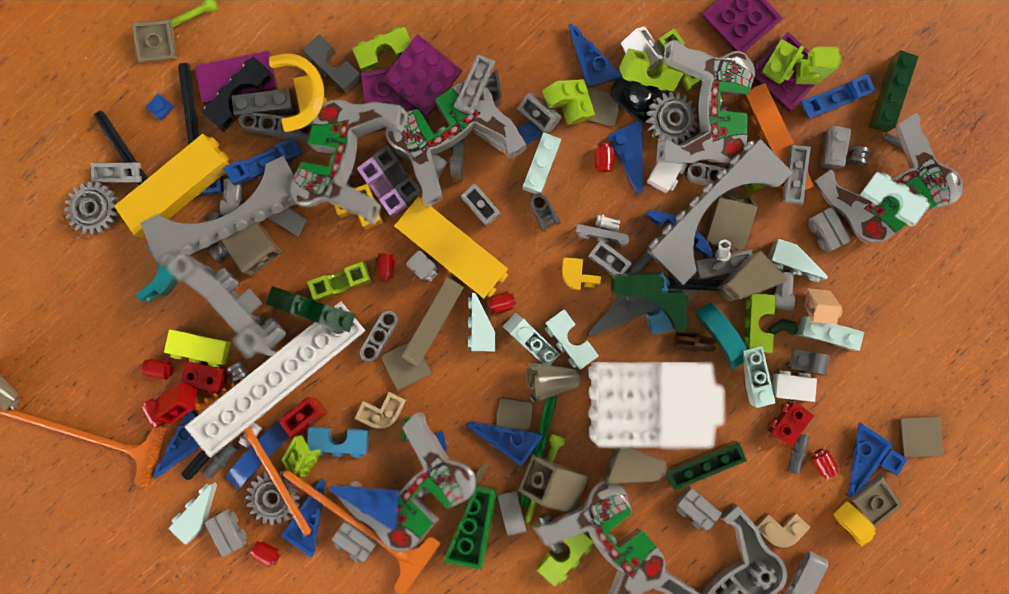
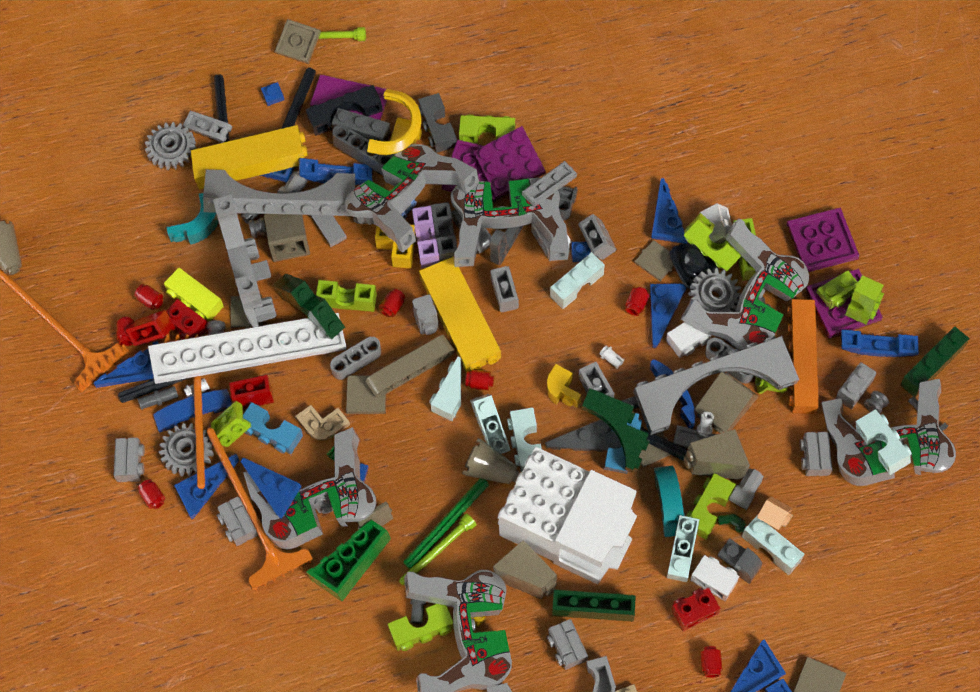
camera: 30 degrees right, 20 degrees down
(191, 522) = (102, 436): light aqua slope -> none
(512, 442) = (425, 504): blue wing -> none
(512, 513) = (391, 567): light grey slope -> none
(514, 414) = (439, 484): dark tan piece -> none
(544, 213) = (558, 322): dark grey piece -> none
(553, 484) = (444, 552): dark tan slope -> none
(572, 98) = (632, 237): lime brick -> none
(586, 232) = (590, 355): light grey plate -> none
(693, 341) = (644, 496): reddish brown arm -> none
(792, 257) = (767, 461): light aqua slope -> none
(796, 183) = (805, 388): light grey tile -> none
(798, 454) = (690, 641): dark grey pin -> none

